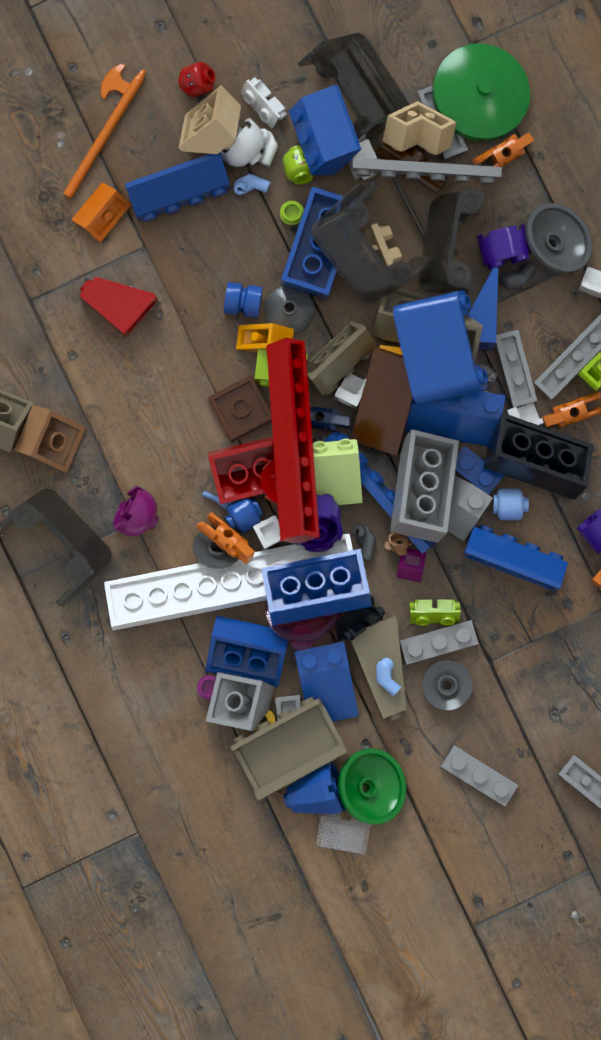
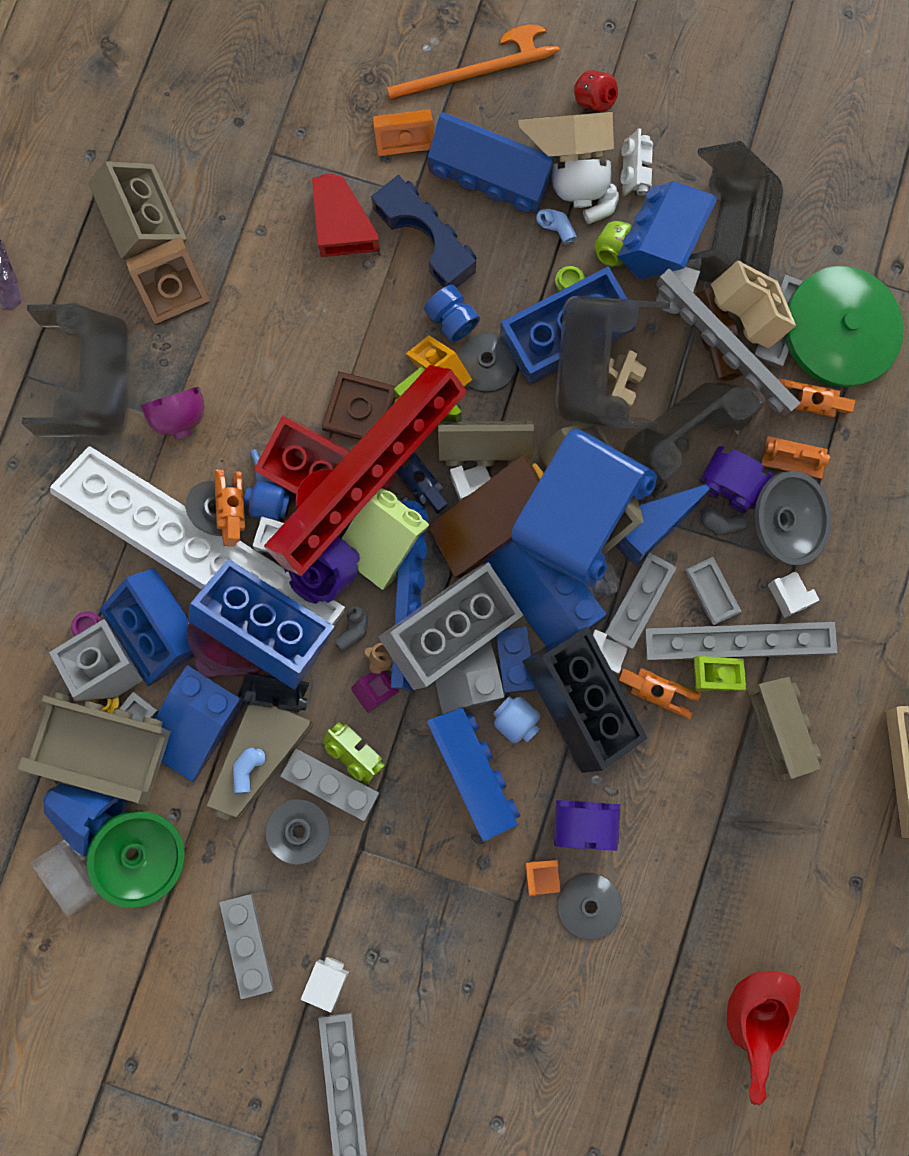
camera: 45 degrees right, 5 degrees down
(147, 261) = (401, 207): none -> dark blue arch
(524, 198) = (795, 456): none -> orange hinge
(544, 752) = (325, 984): none -> white brick
(550, 323) = (712, 591): none -> light grey tile

